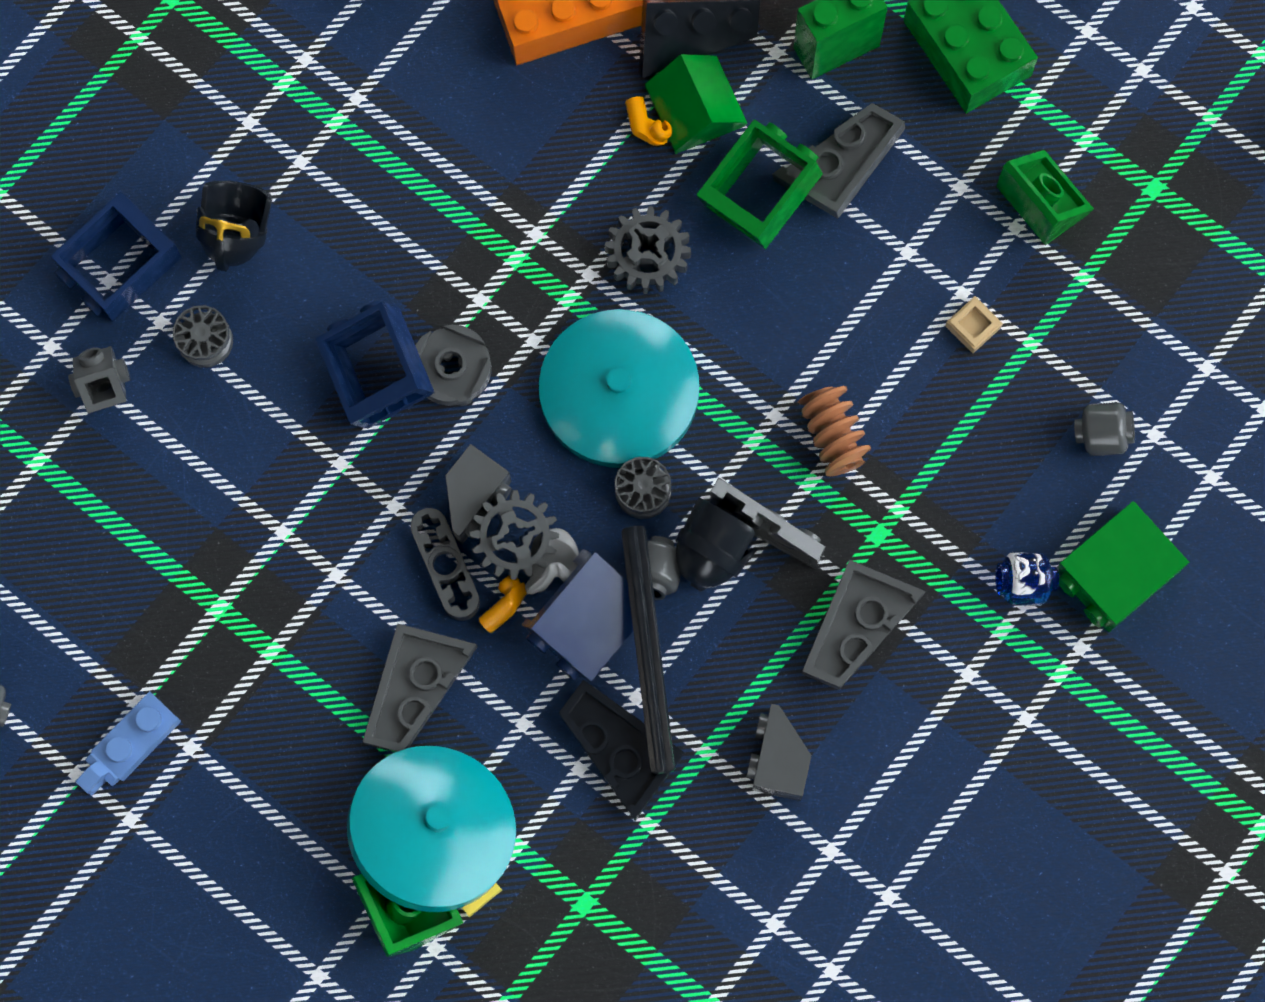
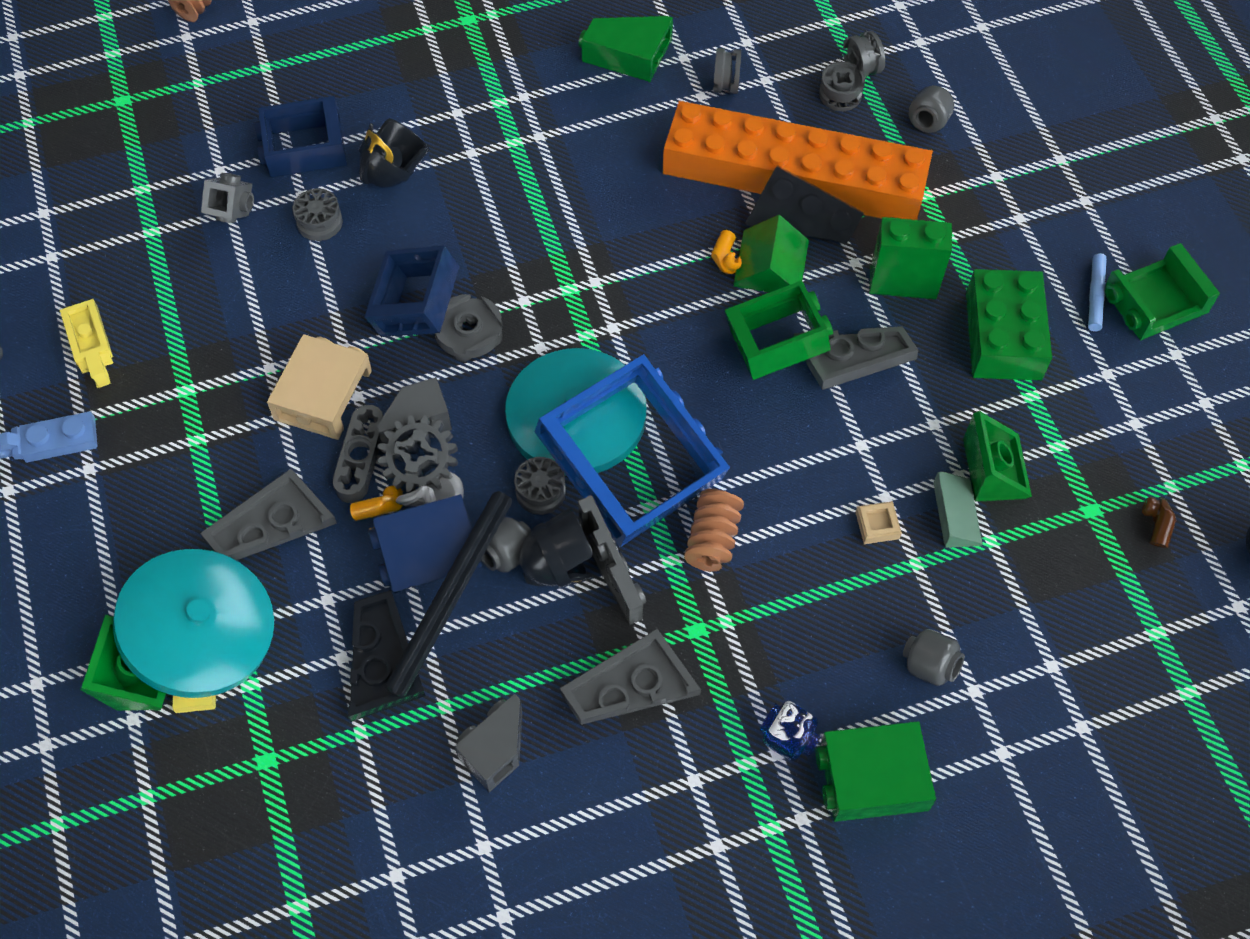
camera: 30 degrees right, 15 degrees down
(81, 620) = (88, 340): none -> light yellow hinge
(356, 520) = (318, 385): none -> tan panel
(639, 234) = (681, 328): dark grey gear -> none
(689, 458) = (586, 479): none -> blue window
(1037, 267) = (957, 511): none -> sand green slope
(1223, 158) = (1163, 518): none -> reddish brown arm

